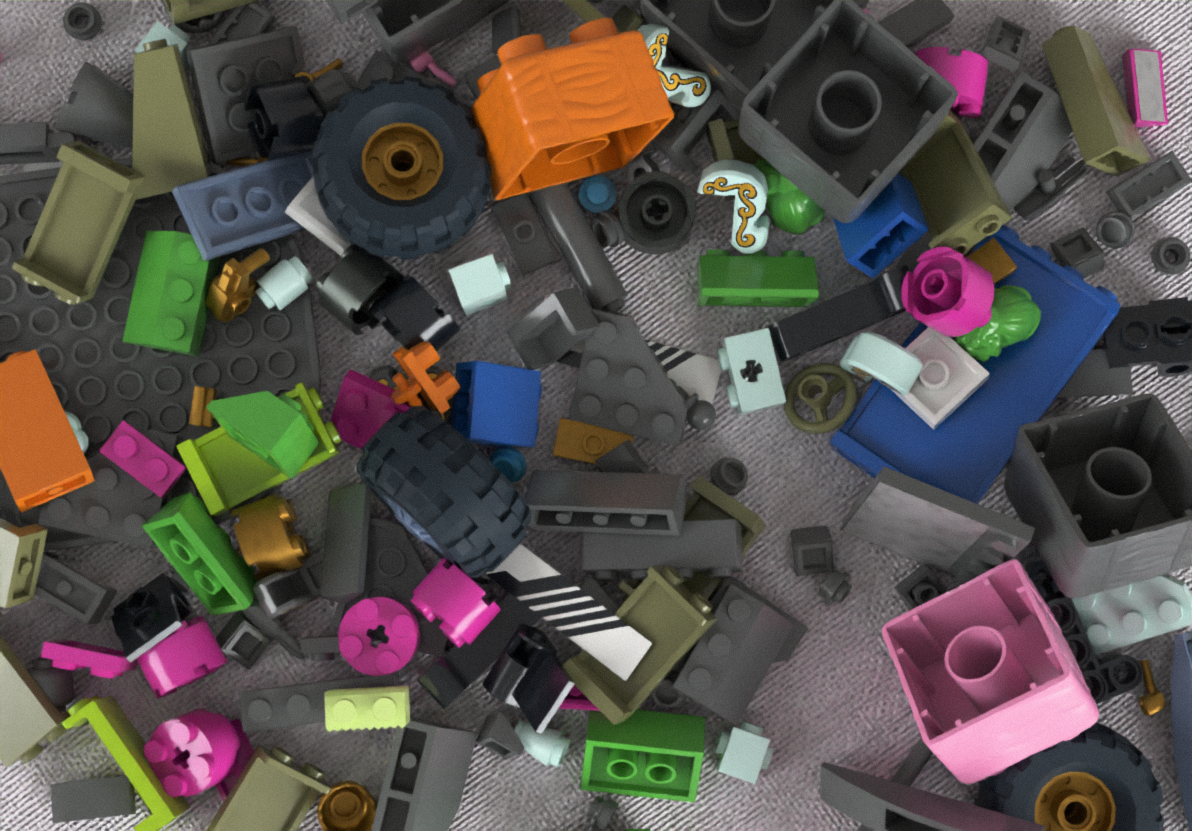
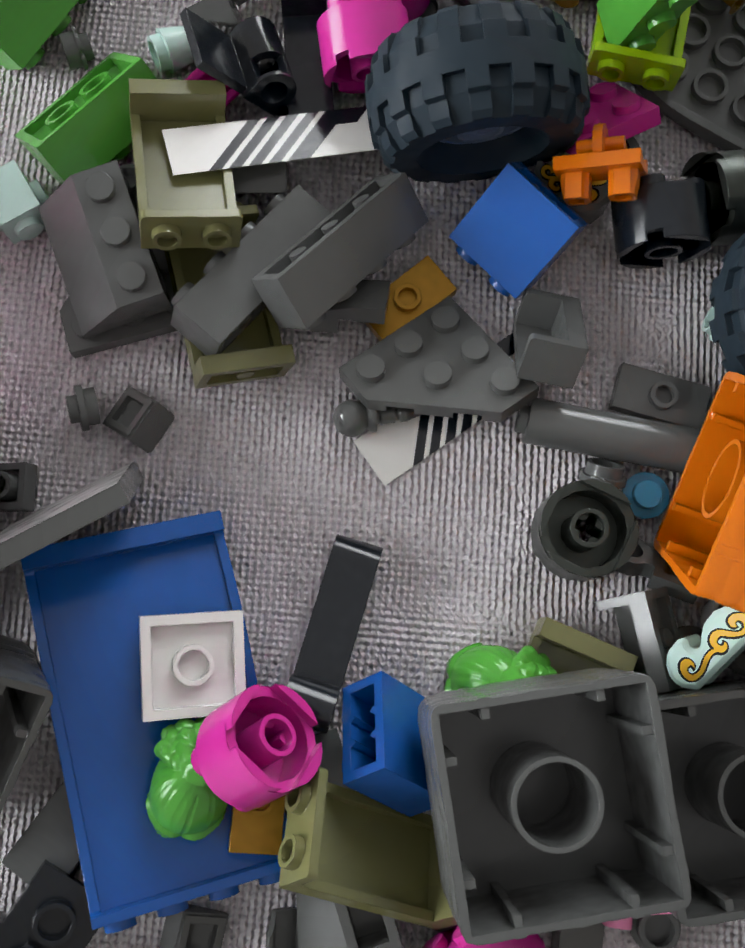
camera: 130 degrees right, 5 degrees down
(481, 284) = (648, 304): light aqua brick -> none
(510, 463) = (450, 207): dark azure plate -> none
(729, 475) = (272, 395): dark grey plate -> none
(750, 193) = (530, 632): light aqua animal -> none
(756, 279) = (440, 574): bright green slope -> none
(767, 388) = (323, 497): light aqua brick -> none
(808, 384) = (290, 532): olive piece -> none
(882, 359) = (248, 621): light aqua animal -> none

